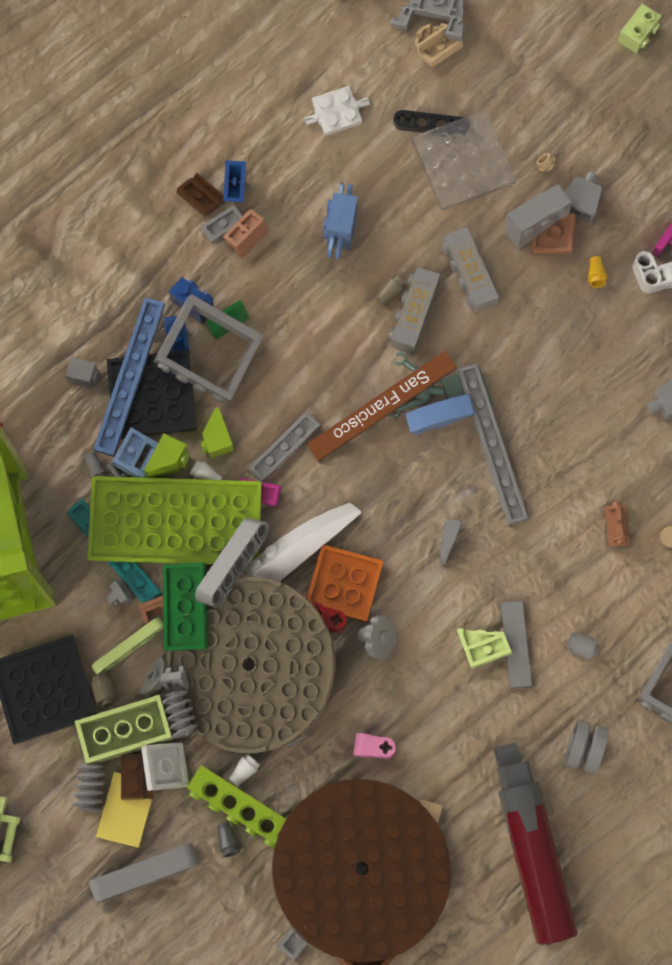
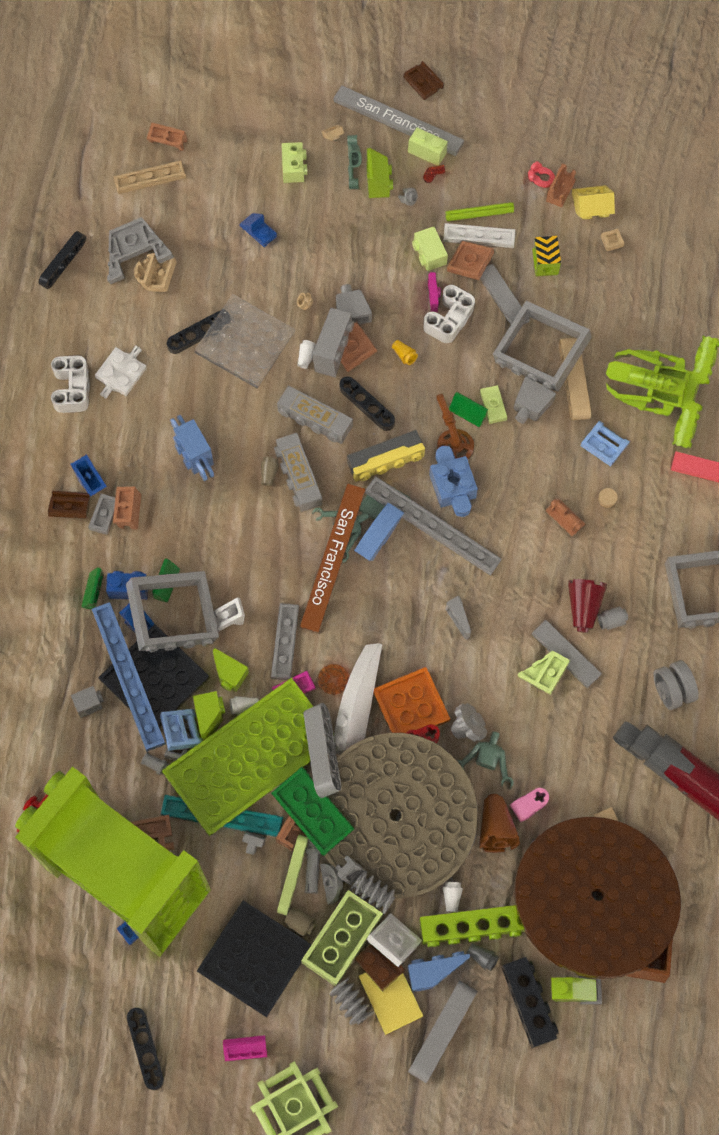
camera: 40 degrees left, 5 degrees down
(49, 519) = (157, 828): none -> nougat plate
(148, 655) = (312, 869): none -> light grey pin
(163, 282) = (92, 589): none -> green slope
(174, 819) = (430, 973): none -> medium blue slope
(215, 940) = (535, 1035): none -> black brick
(254, 388) = (229, 614): none -> white slope
(277, 929) = (573, 989): none -> lime slope
(291, 95) = (78, 384): none -> white beam
(291, 503) = (337, 671): none -> clear orange gear
(329, 742) = (497, 826): none -> dark orange cone
(372, 679) = (488, 757): none -> sand green piece
(501, 214) = (305, 354): none -> white cone
(502, 352) = (385, 456): none -> piece
(528, 293) = (368, 402): none -> black beam
(542, 418) = (453, 481): none -> medium blue brick
(559, 68) = (258, 229): none -> blue slope
(568, 614) = (585, 602): none -> dark red cone
(575, 383) = (454, 441): none -> dark orange dish
(610, 365) = (468, 409): none -> green slope
(638, 377) = (493, 402): none -> yellowish green plate

